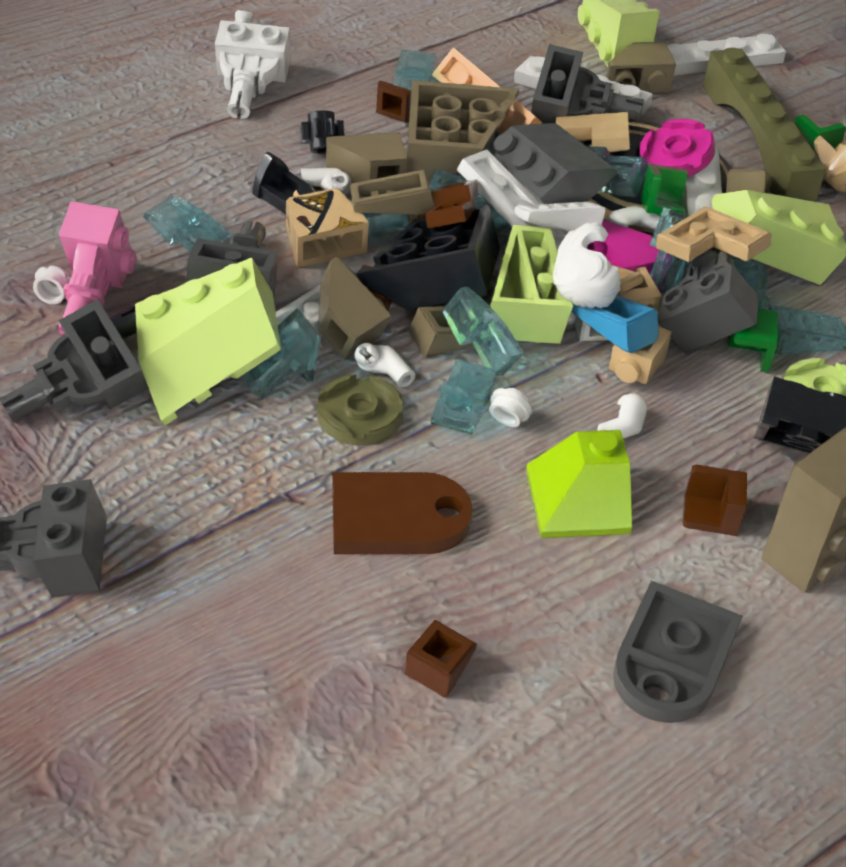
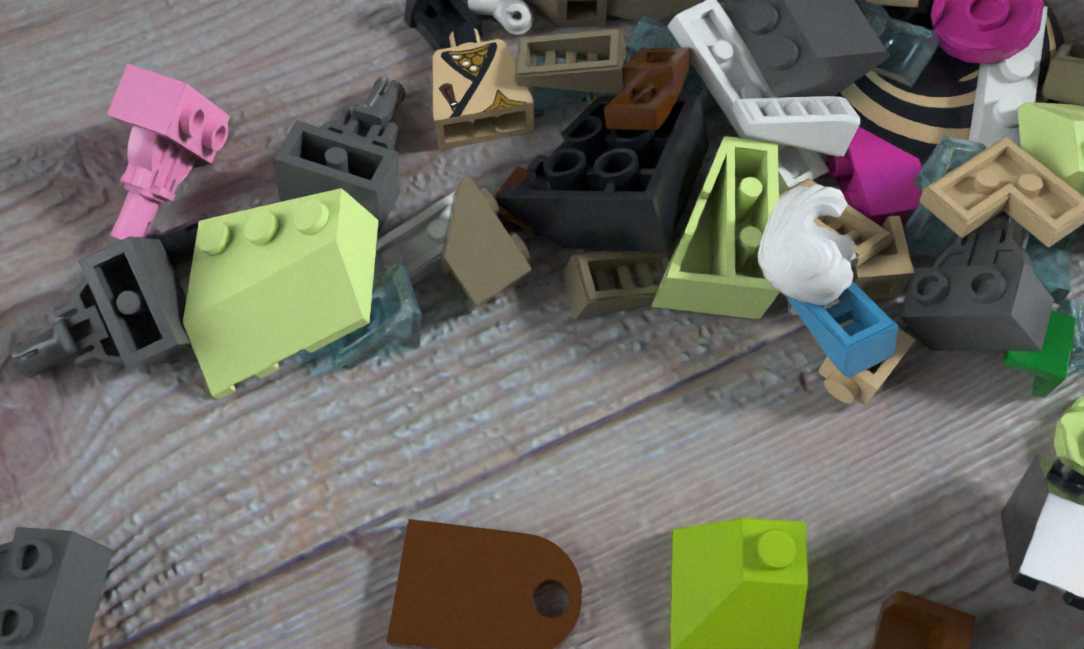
camera: 15 degrees right, 20 degrees up
(50, 284) = (112, 156): white plate -> none
(184, 221) = (307, 75): clear light blue slope -> none
(360, 409) = (469, 406): olive tile -> none
(384, 361) = (516, 328): white arm -> none
(464, 397) = (609, 405): clear light blue slope -> none
(479, 324) = (642, 292): clear light blue slope -> none
(509, 407) = (667, 432): white plate -> none
(630, 417) = (830, 470): white arm -> none
(634, 216) = (903, 118): white arm -> none
(663, 189) = (952, 87): green panel -> none

